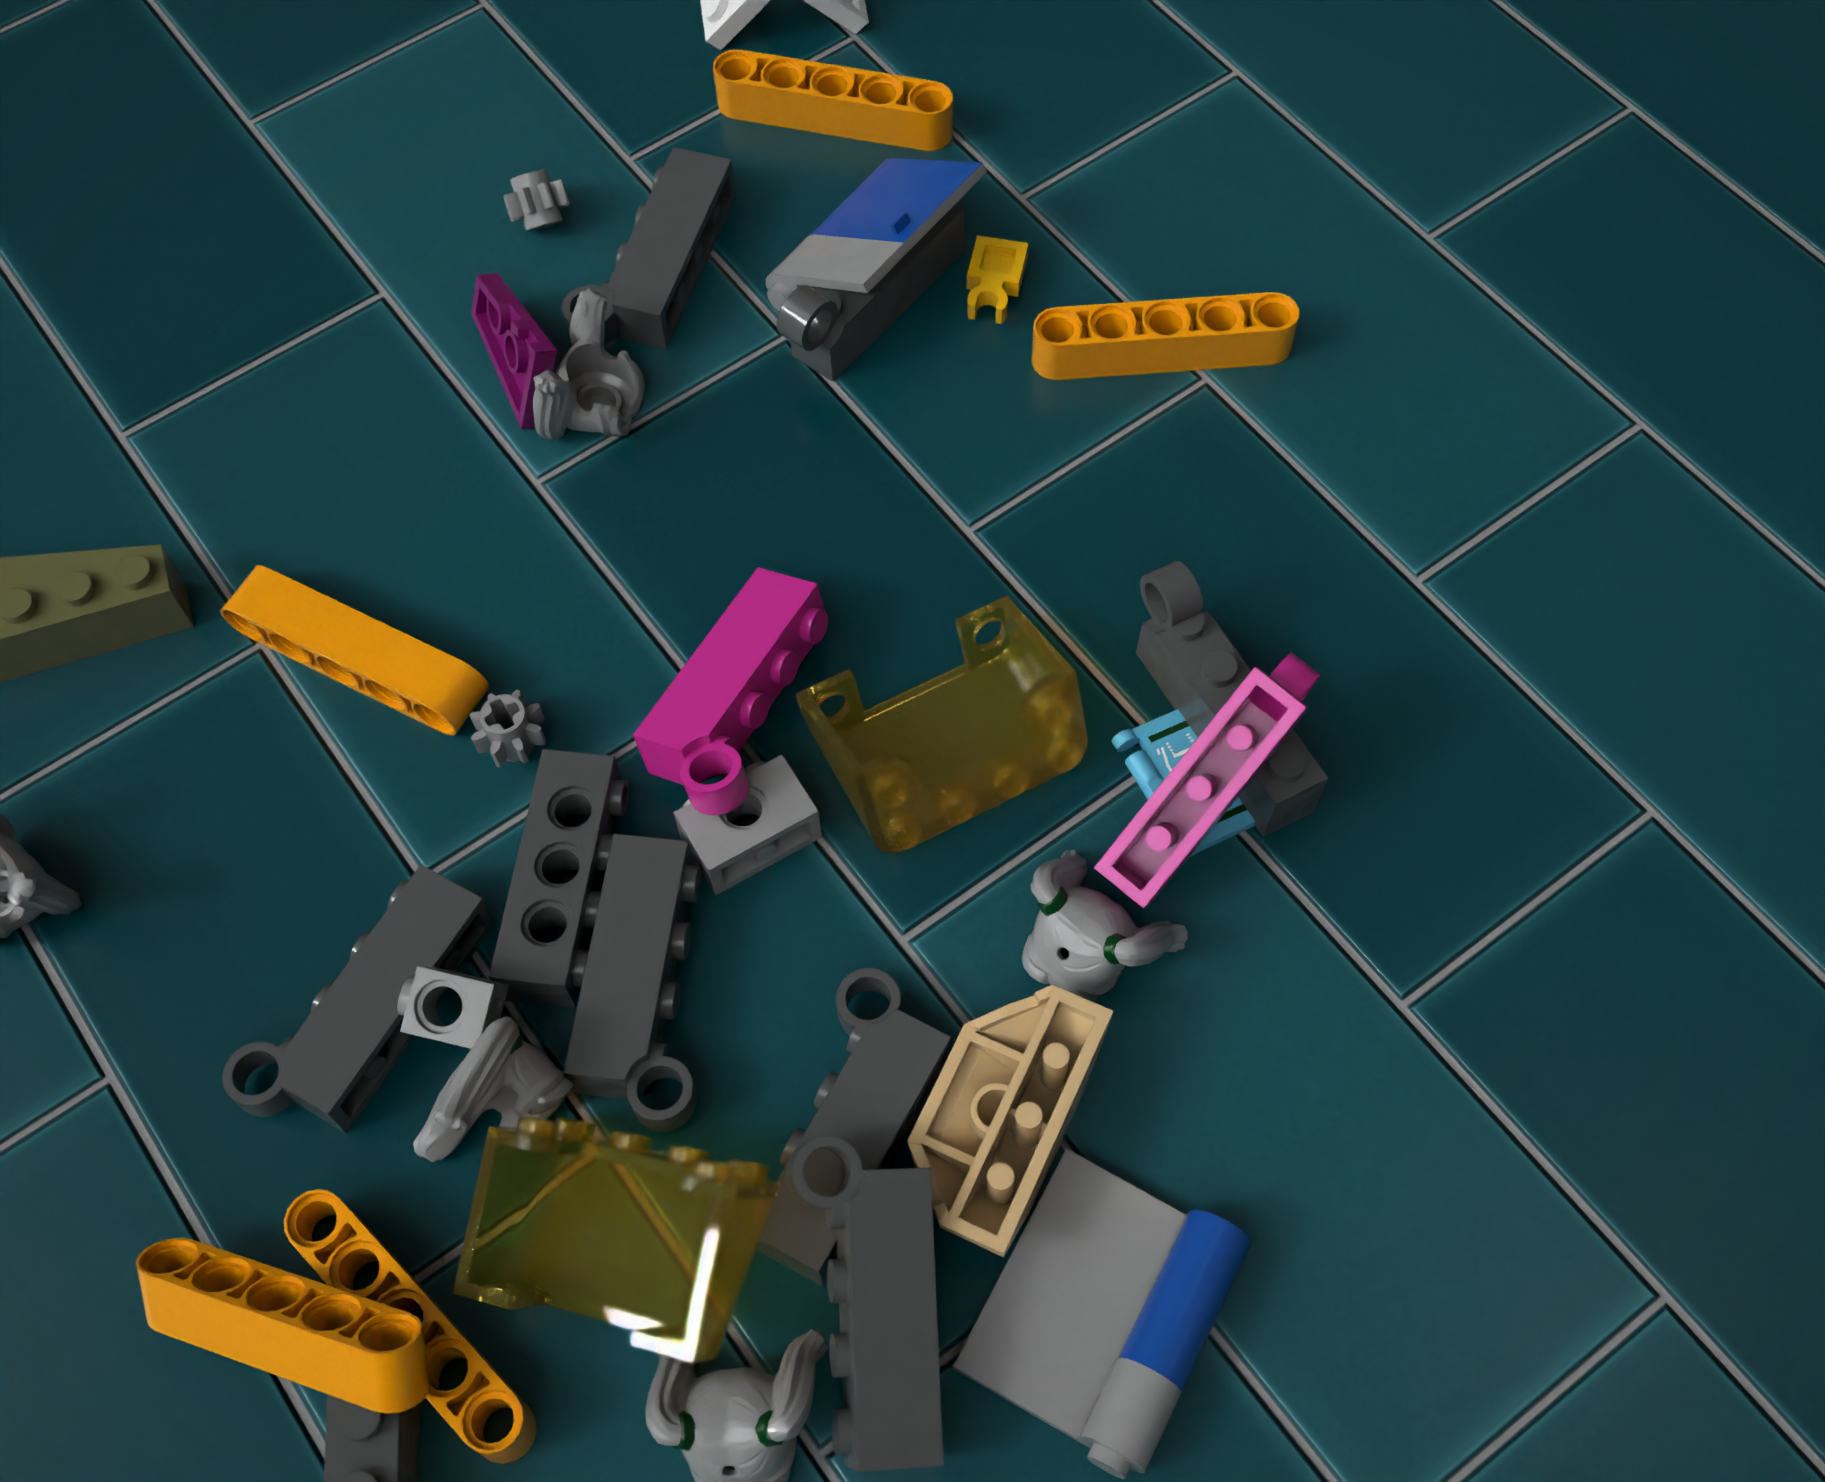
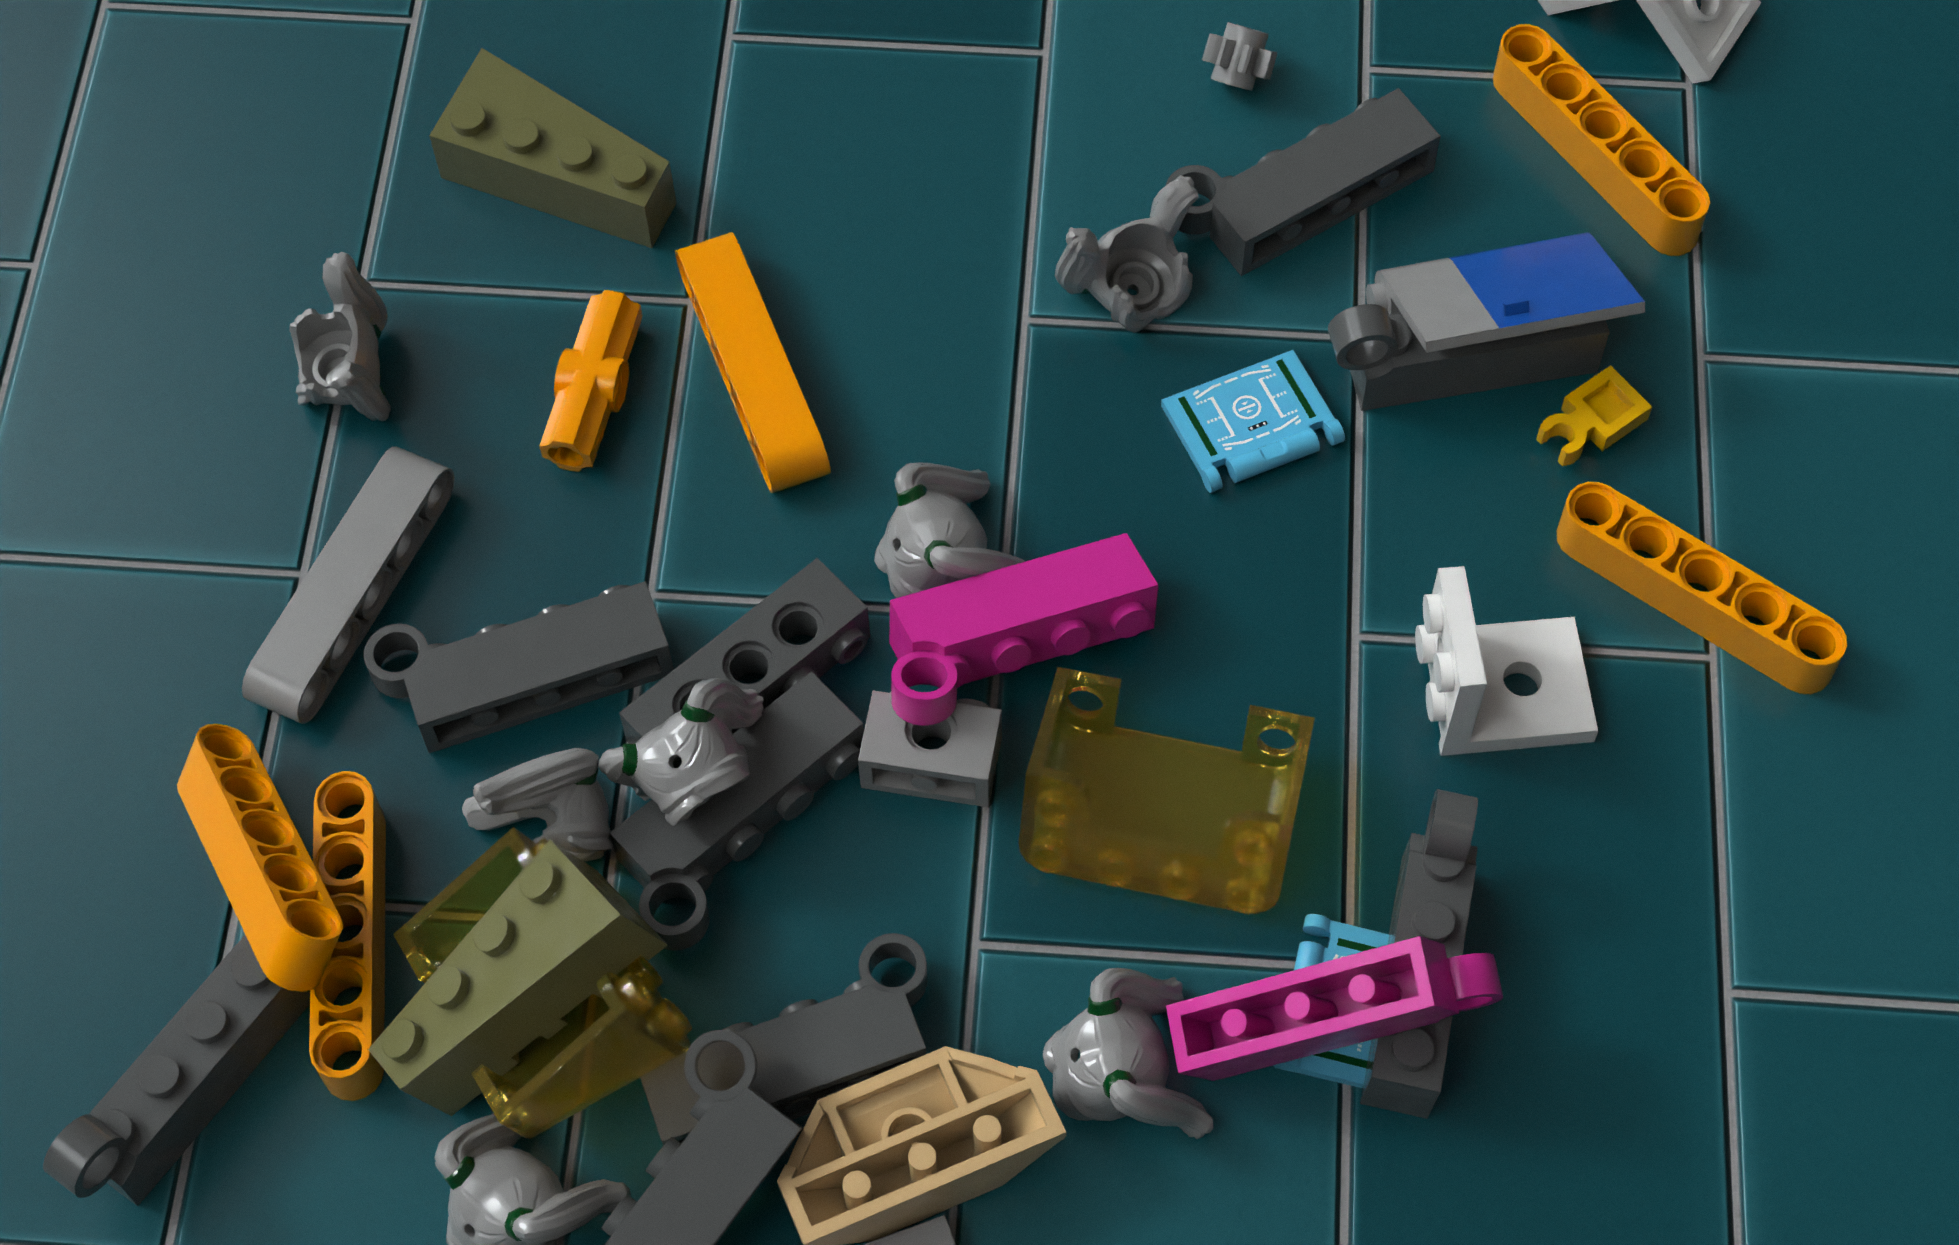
camera: 40 degrees right, 0 degrees up
(163, 1057) = (348, 585): none -> light grey beam
(235, 754) = (591, 381): none -> light orange piece
(480, 998) = (595, 722): light grey brick -> none
(508, 728) = (810, 535): light grey gear -> none
(513, 343) = (1104, 172): magenta wing -> none
(580, 939) = (703, 742): none -> light grey hair
(592, 1245) = (513, 979): none -> olive wedge
(617, 665) = (934, 532): none -> light grey hair
(765, 438) = (1252, 420): none -> medium azure piece
(1080, 481) = (1469, 671): none -> white bracket

